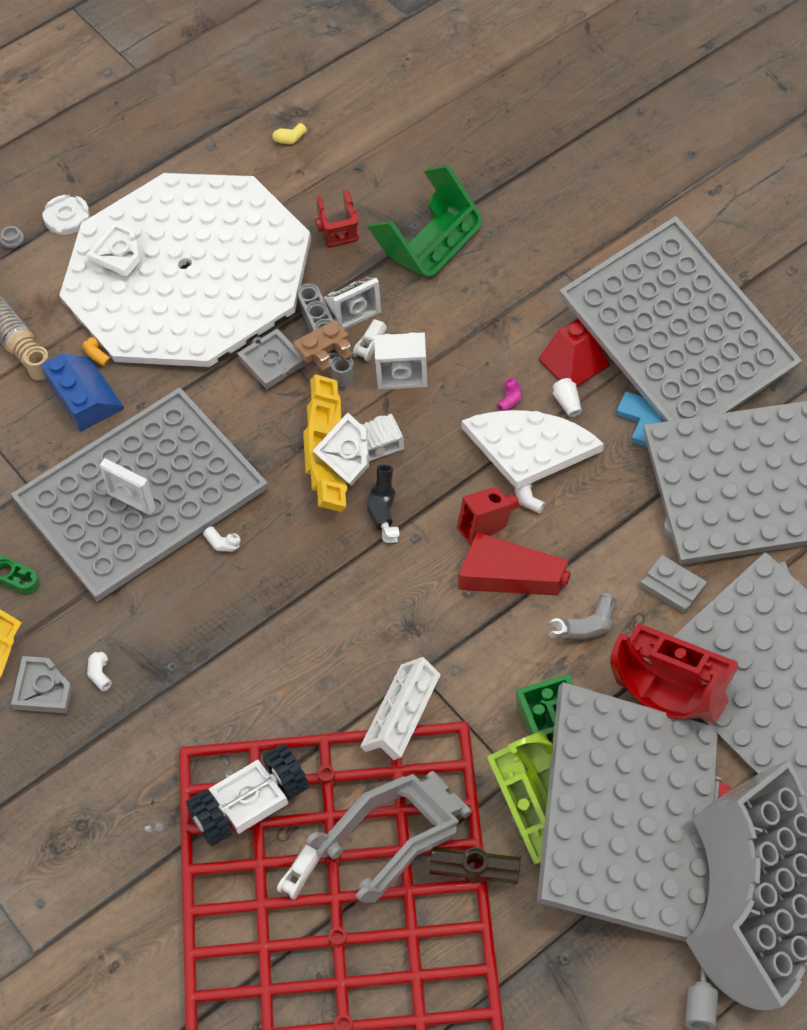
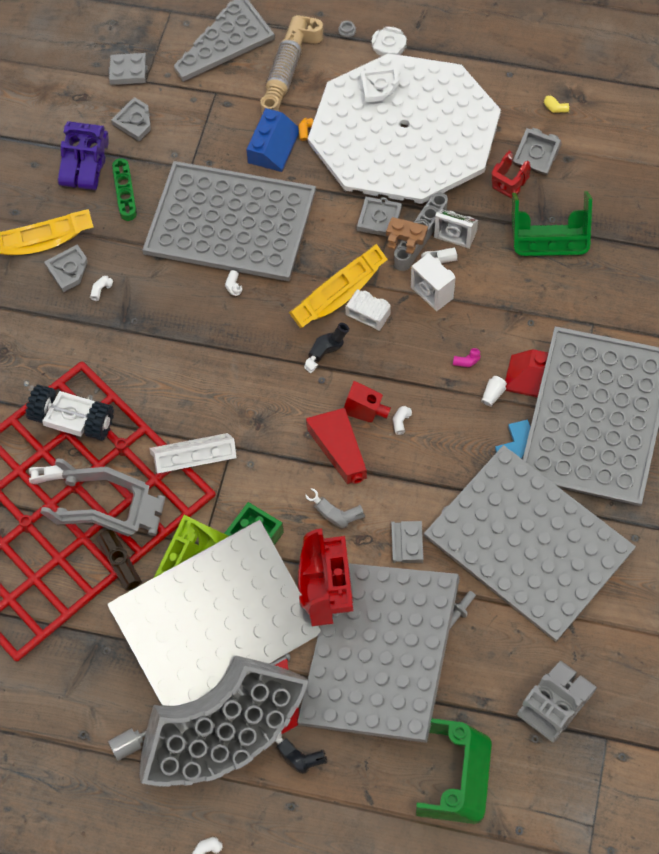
camera: 50 degrees right, 5 degrees up
(127, 486) = (216, 209): white tile -> none
(329, 179) = (538, 150): none -> light grey plate
(346, 449) = (341, 298): white plate -> none
(530, 443) = (439, 393): white plate -> none

